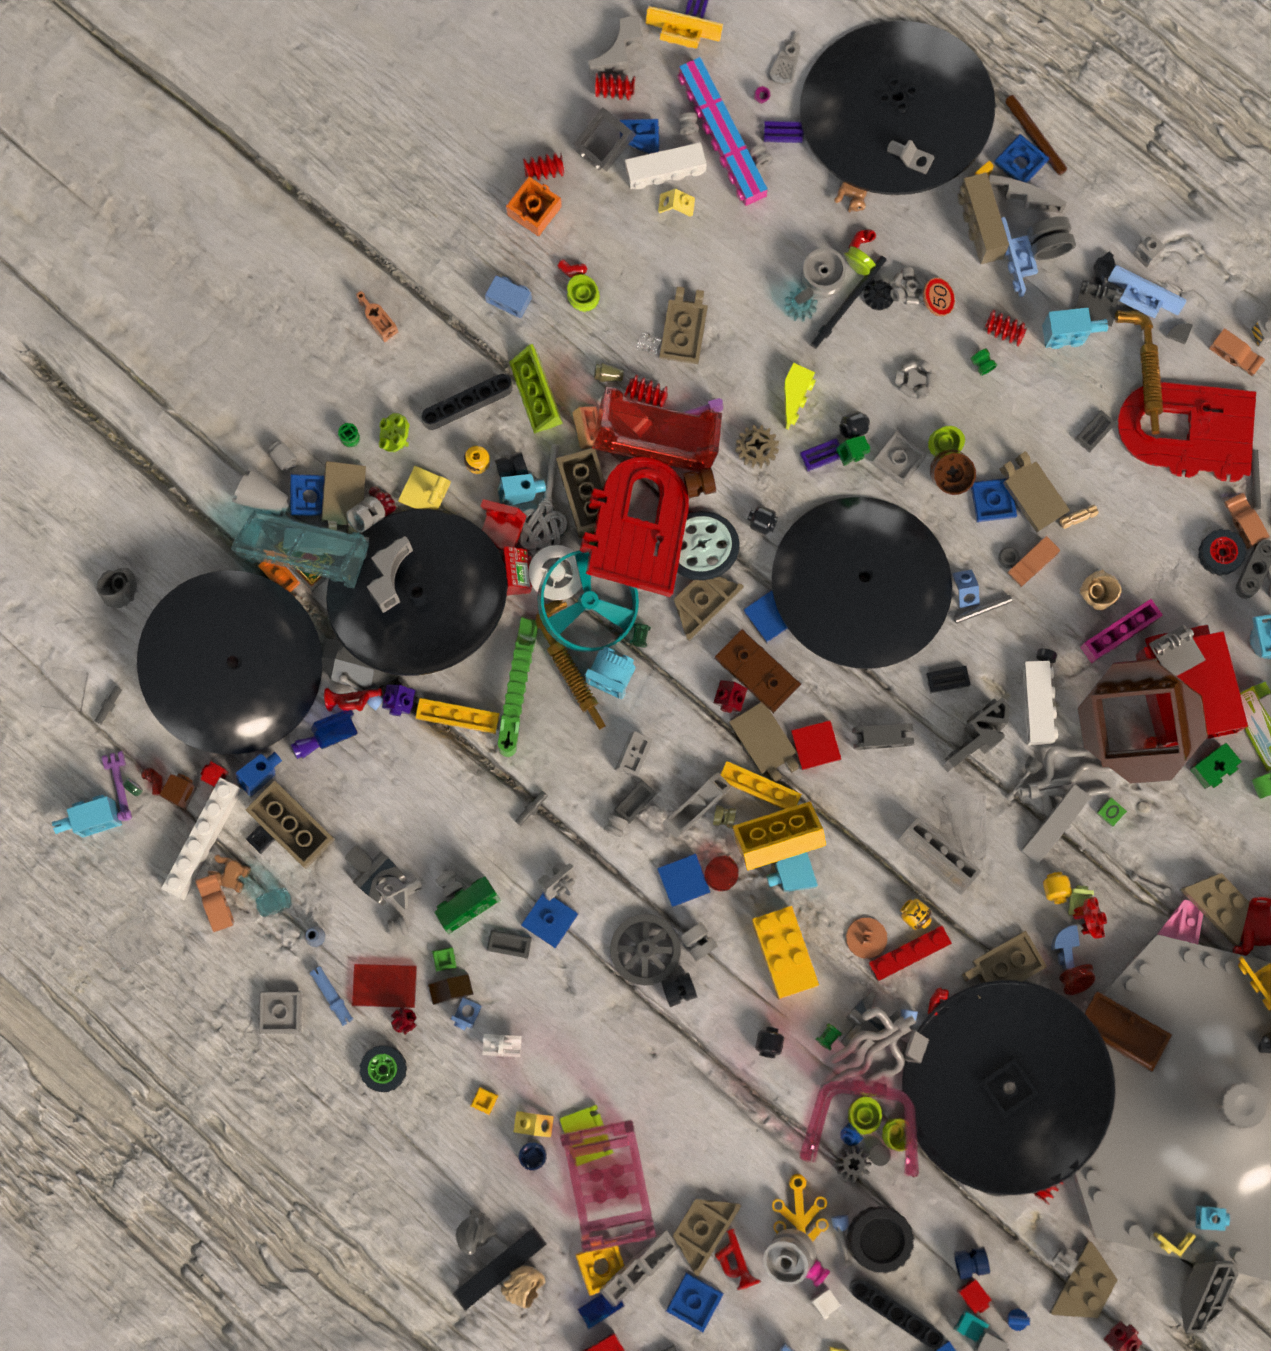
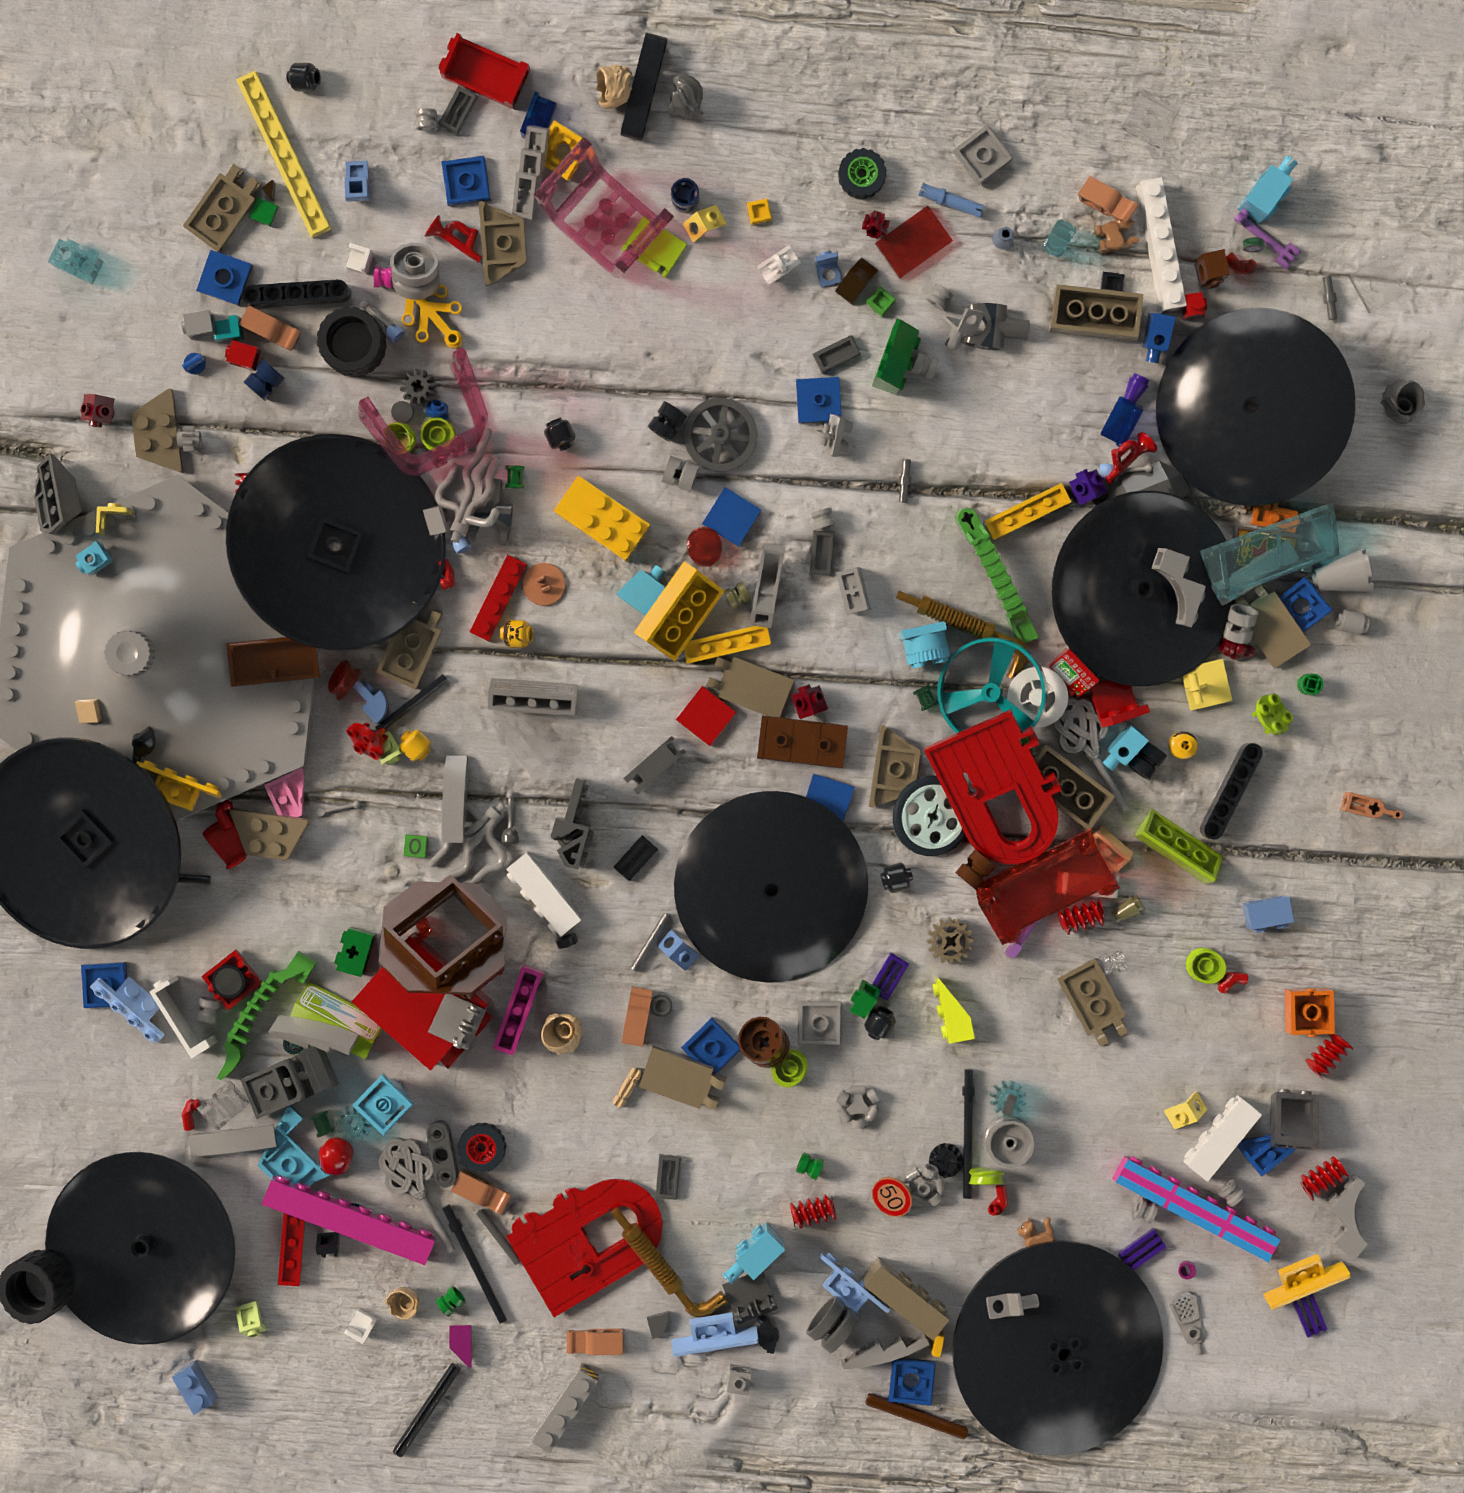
camera: 150 degrees right, 10 degrees up
(937, 1301) = (269, 328): none -> nougat piece
(1041, 922) = (412, 702): none -> black bar

